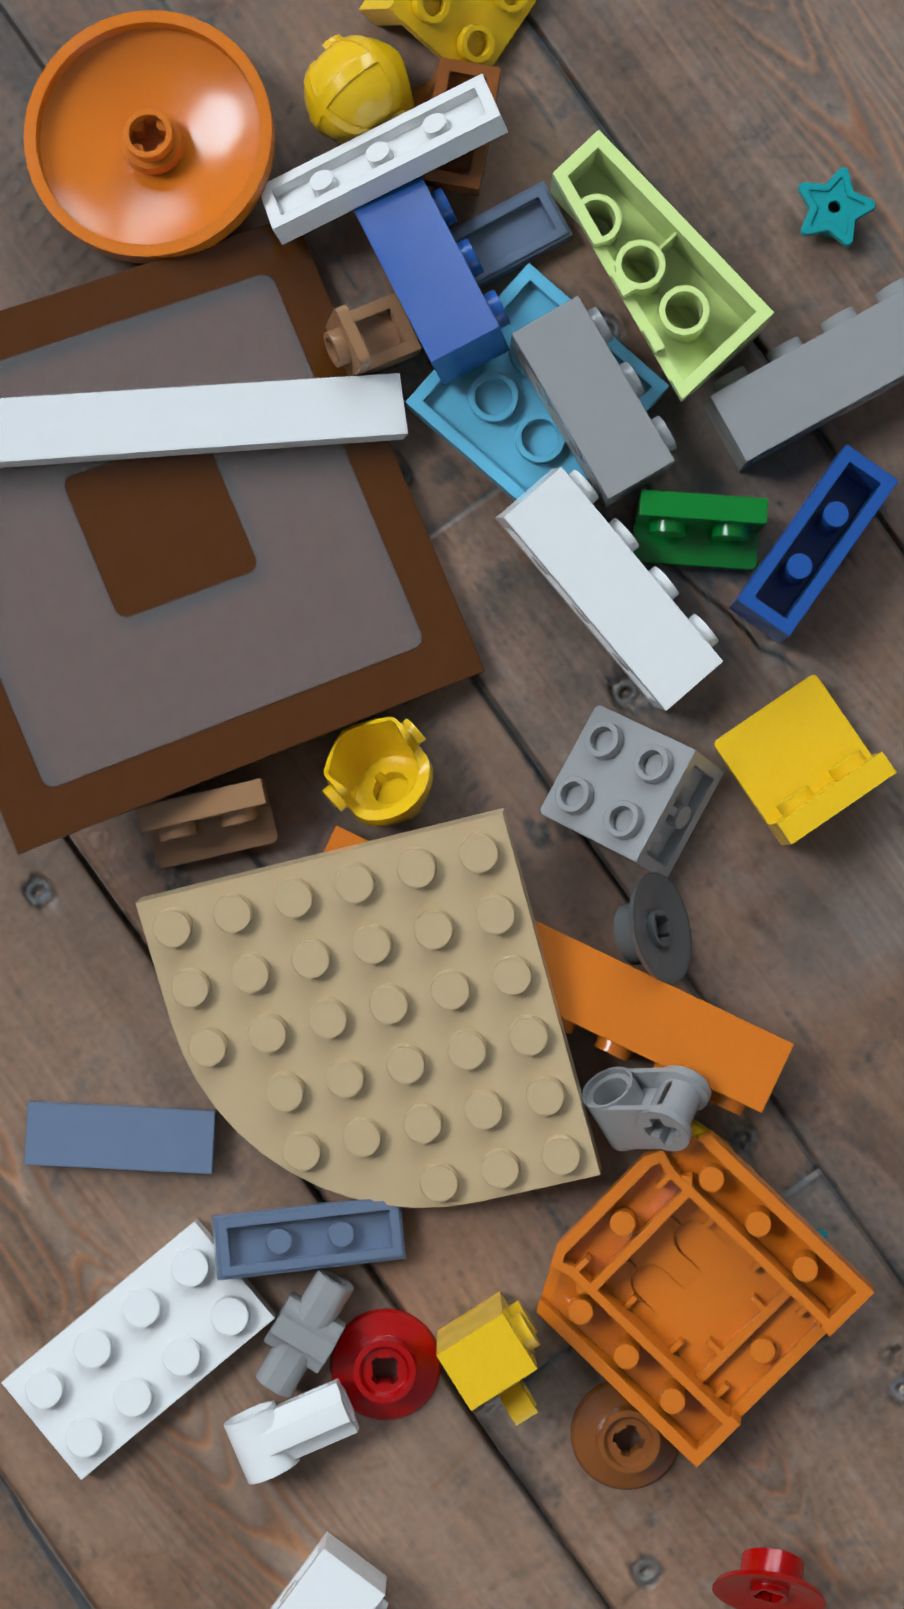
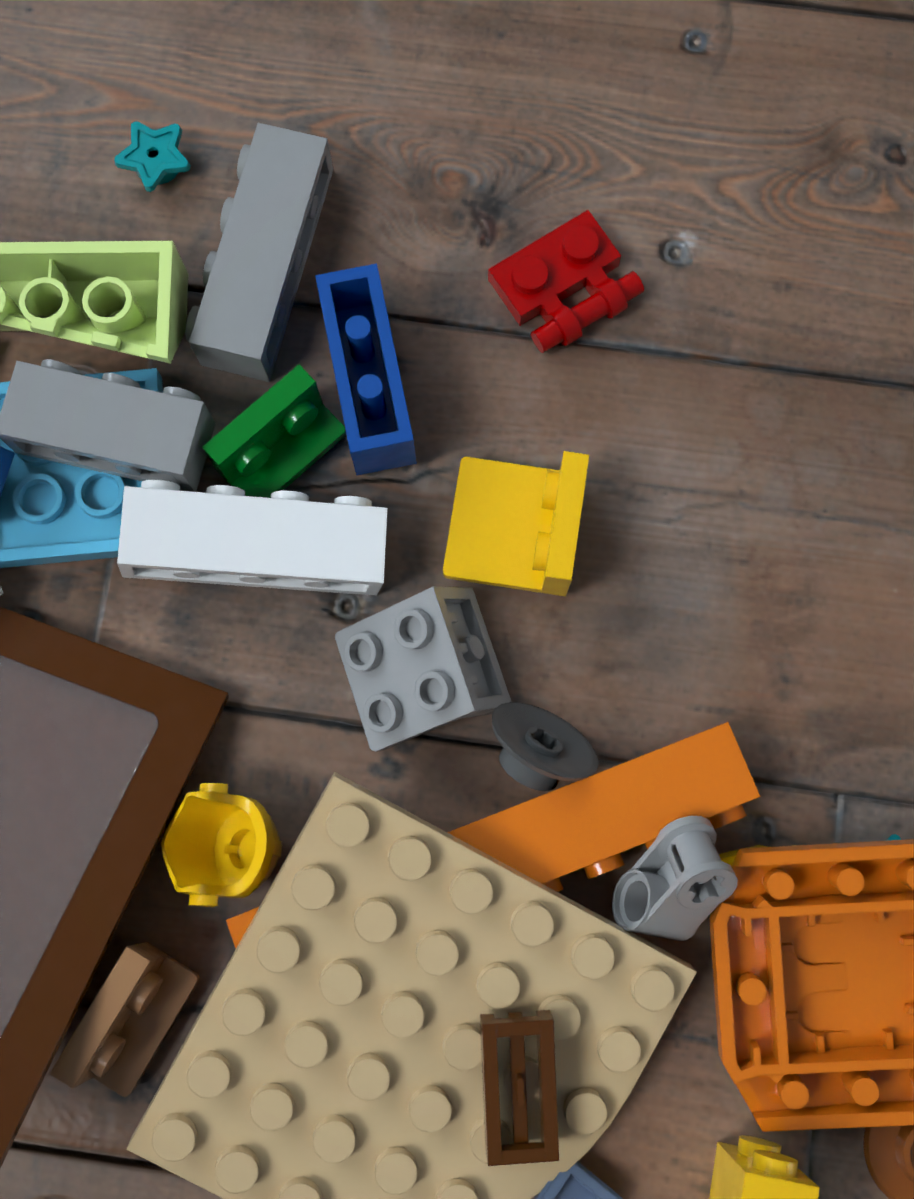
camera: 45 degrees left, 10 degrees down
(451, 1086) = (516, 1028): none -> reddish brown tile

